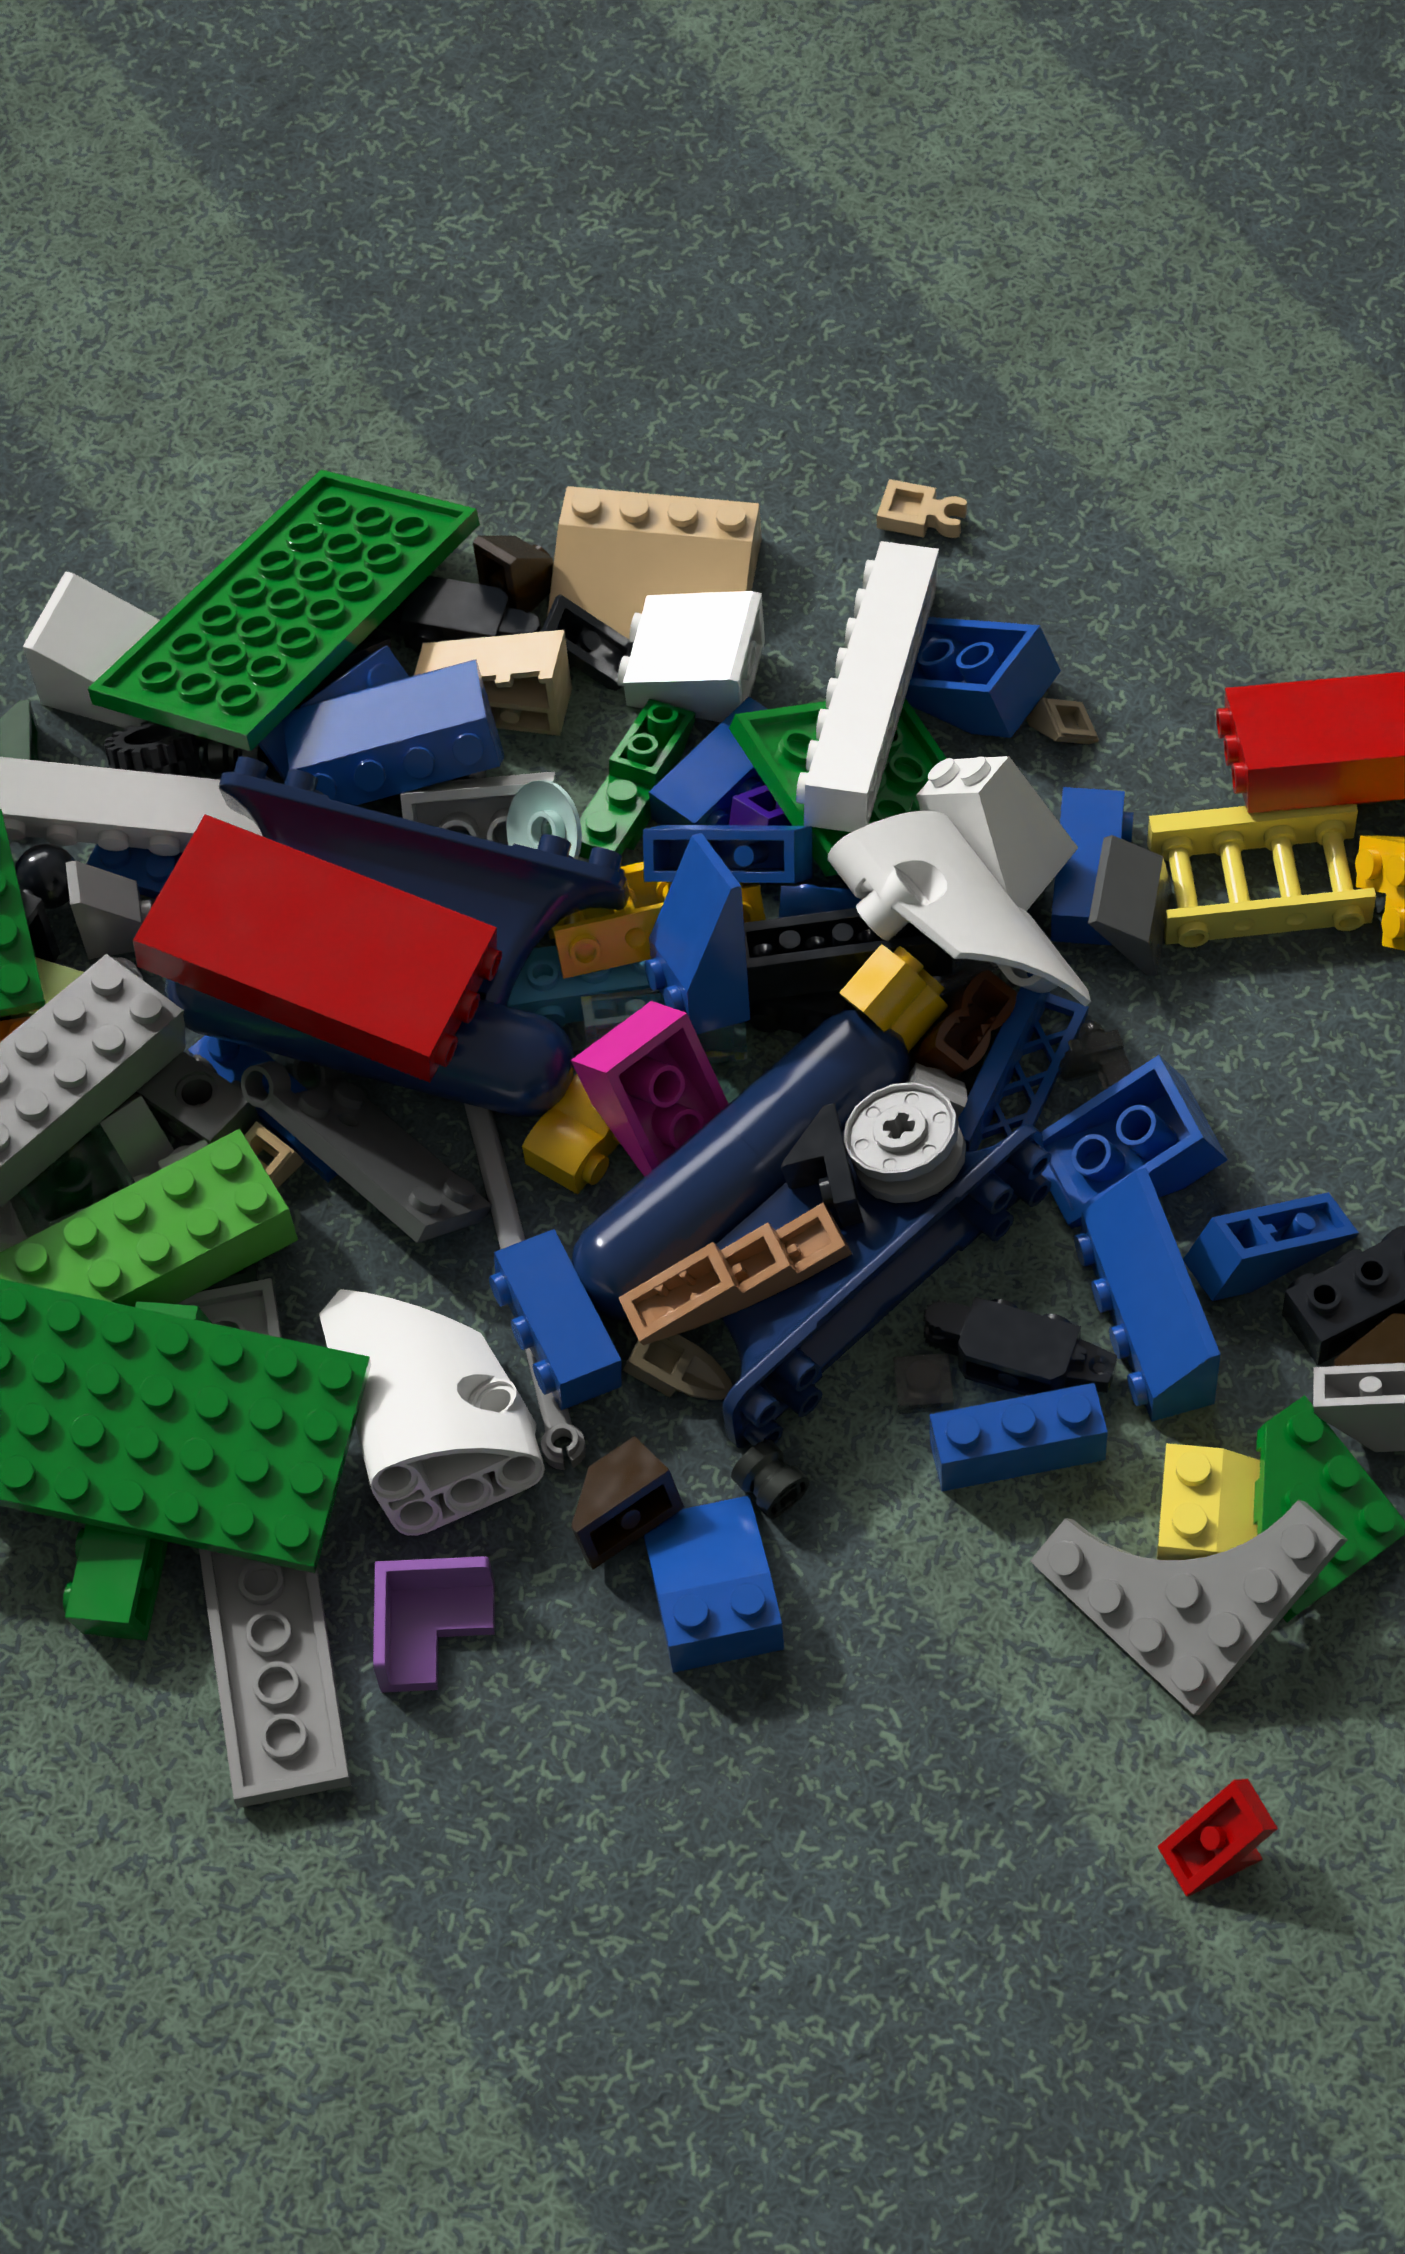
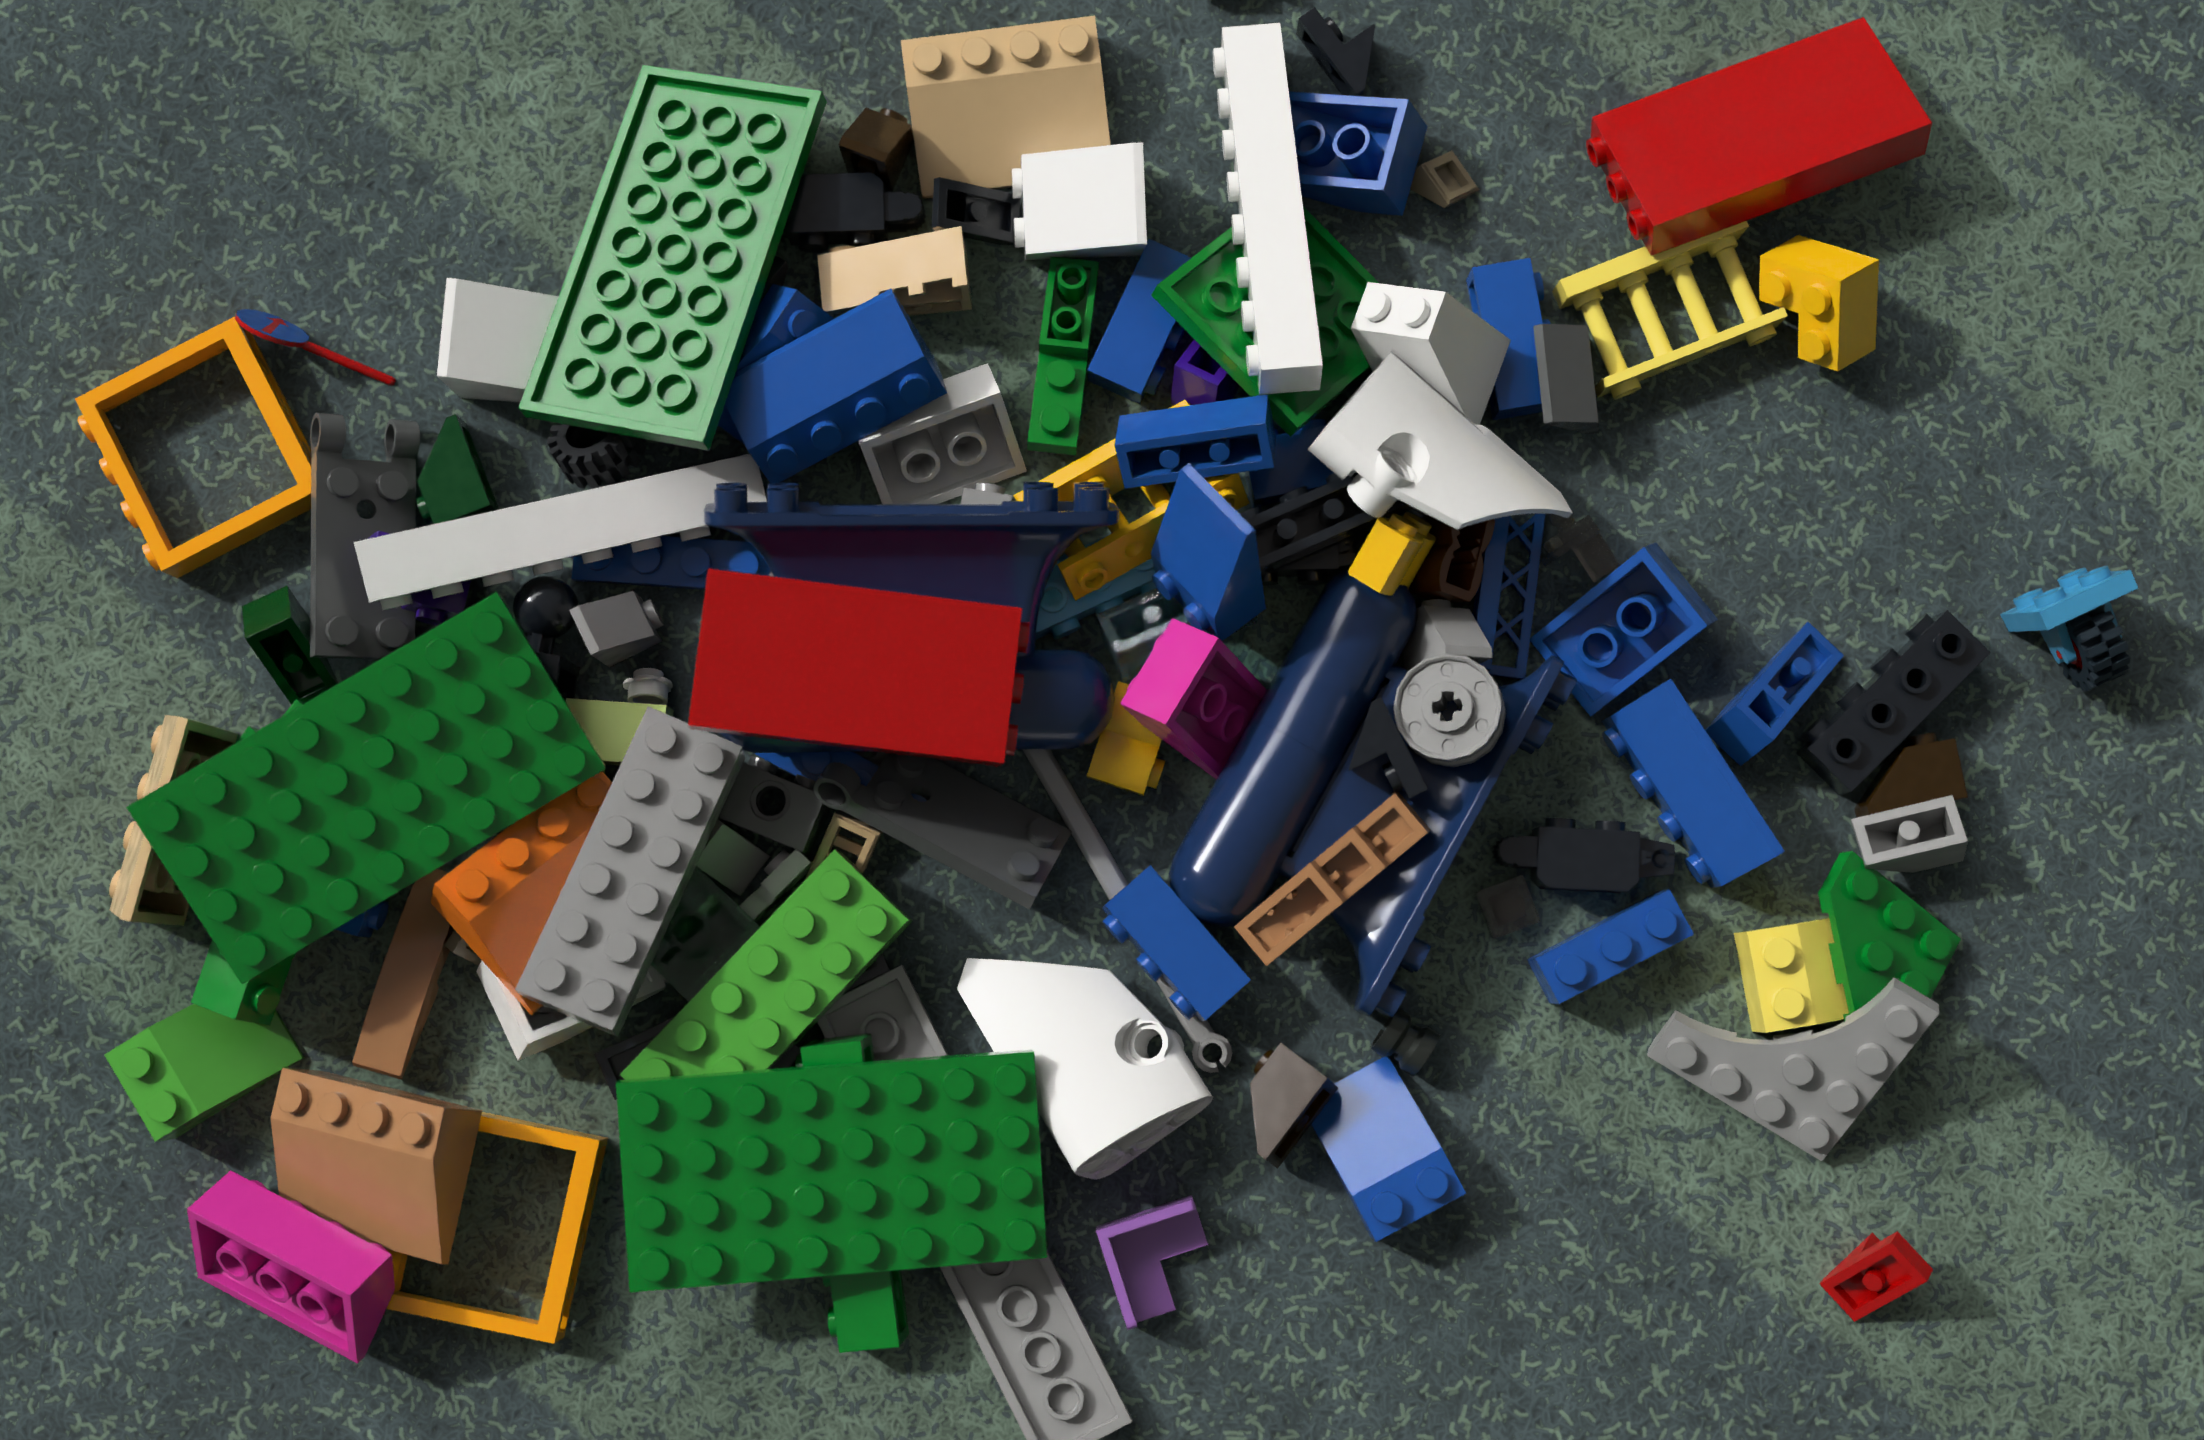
camera: 20 degrees left, 25 degrees up
(543, 809) = (1007, 447): light aqua dish -> none
(678, 1366) = (1306, 958): dark tan plate -> none
(993, 596) = (1343, 64): none -> black slope

